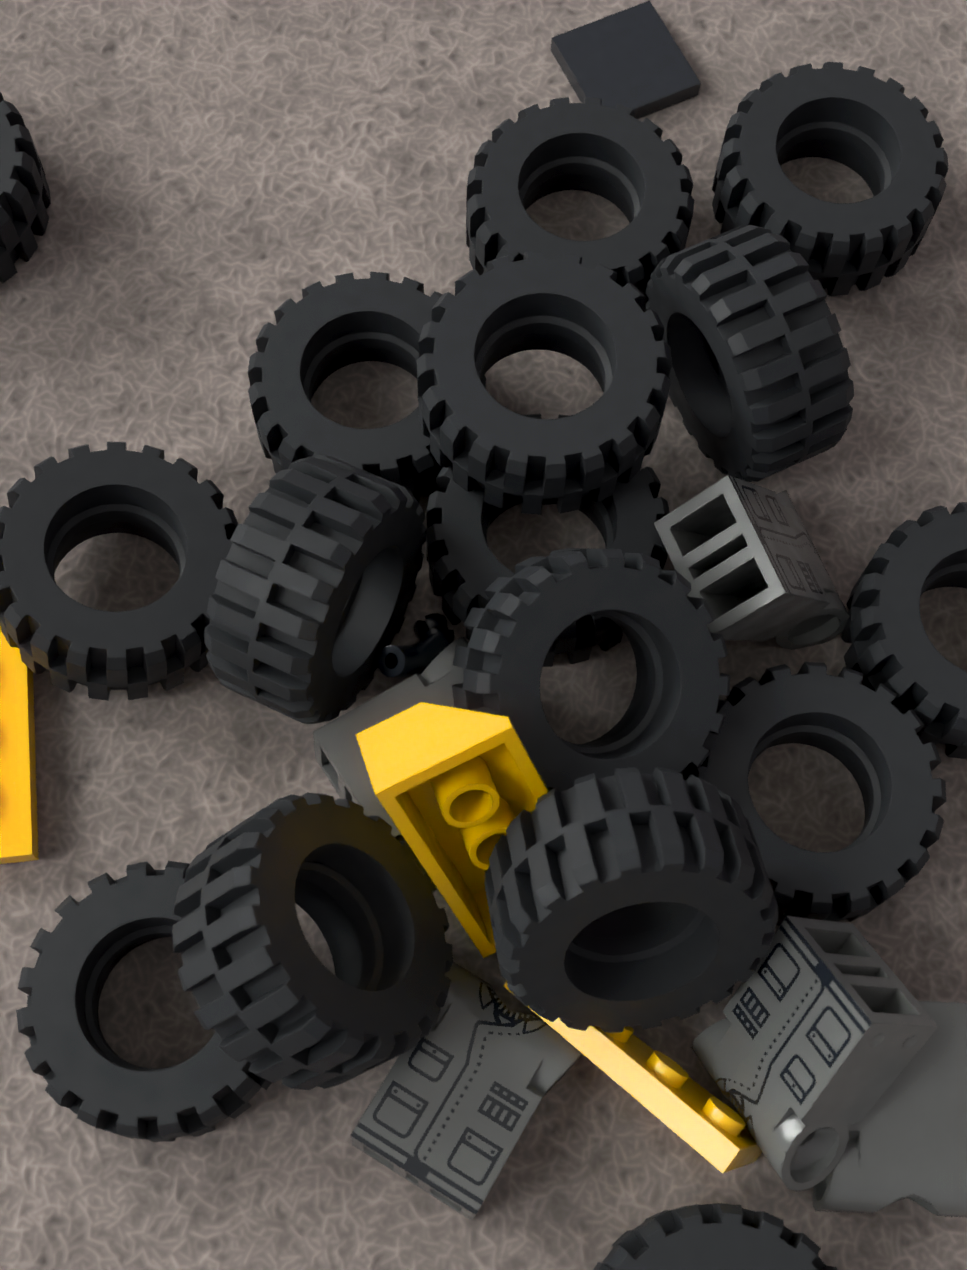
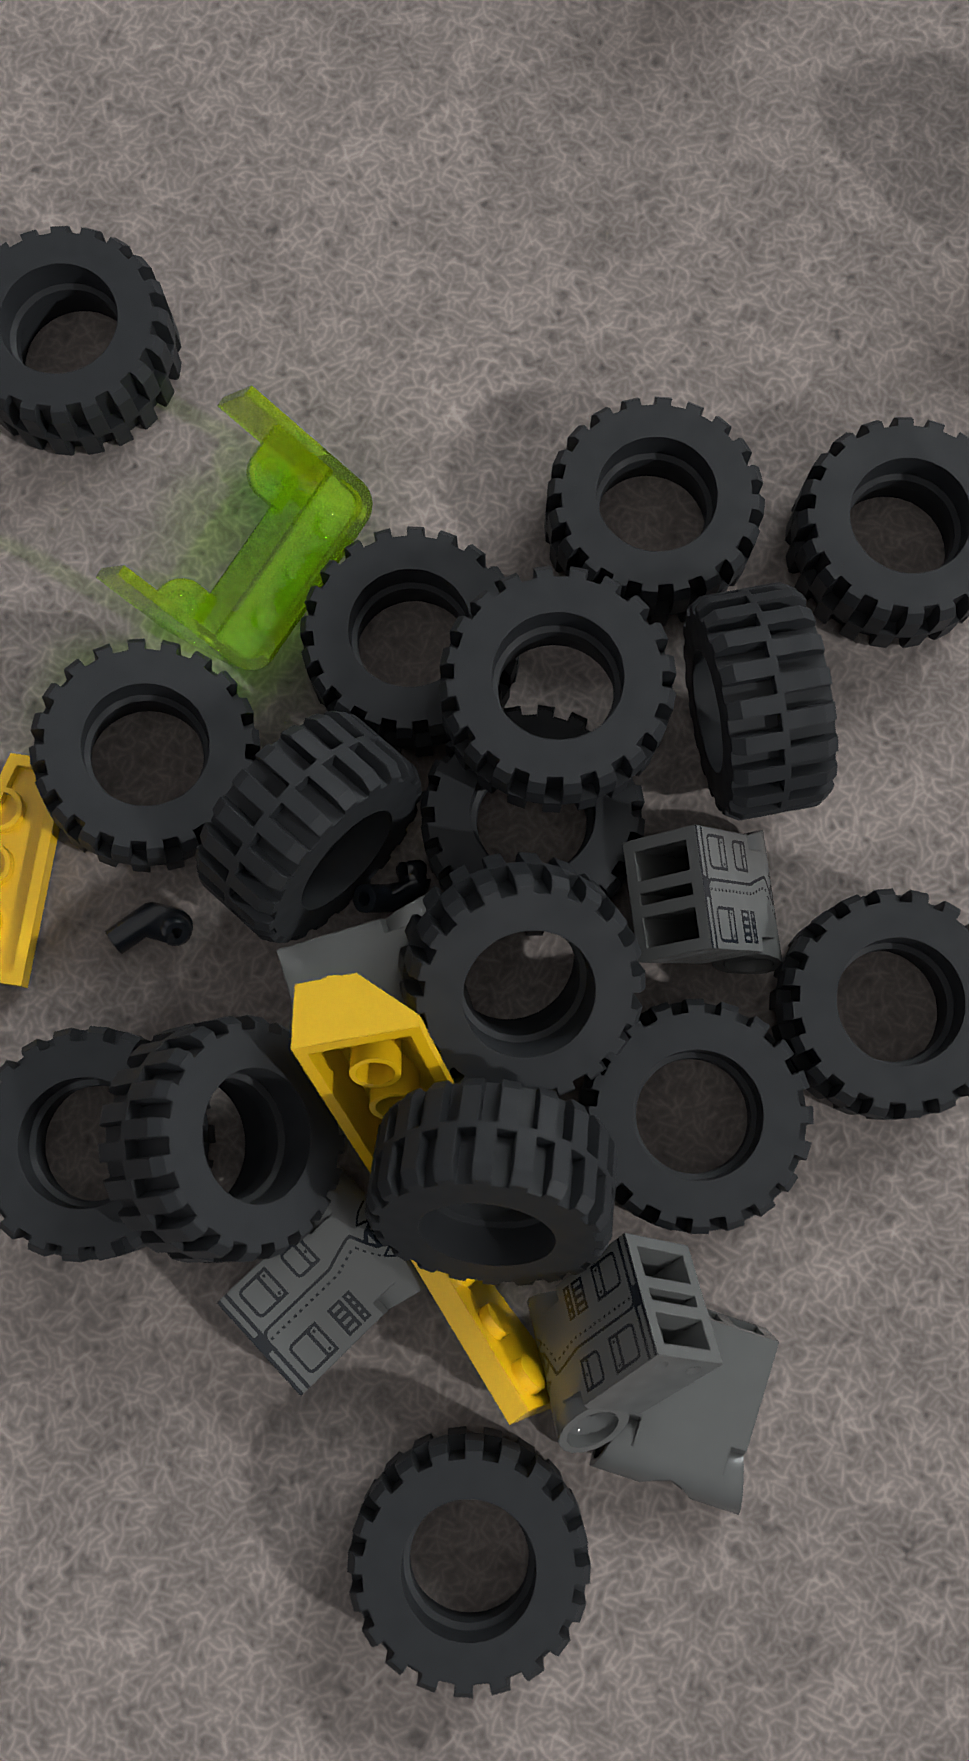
camera: 20 degrees right, 10 degrees up
(162, 752) = (154, 922): none -> black arm
(200, 378) = (263, 592): none -> clear neon green windscreen
(626, 62) = (747, 362): black tile -> none

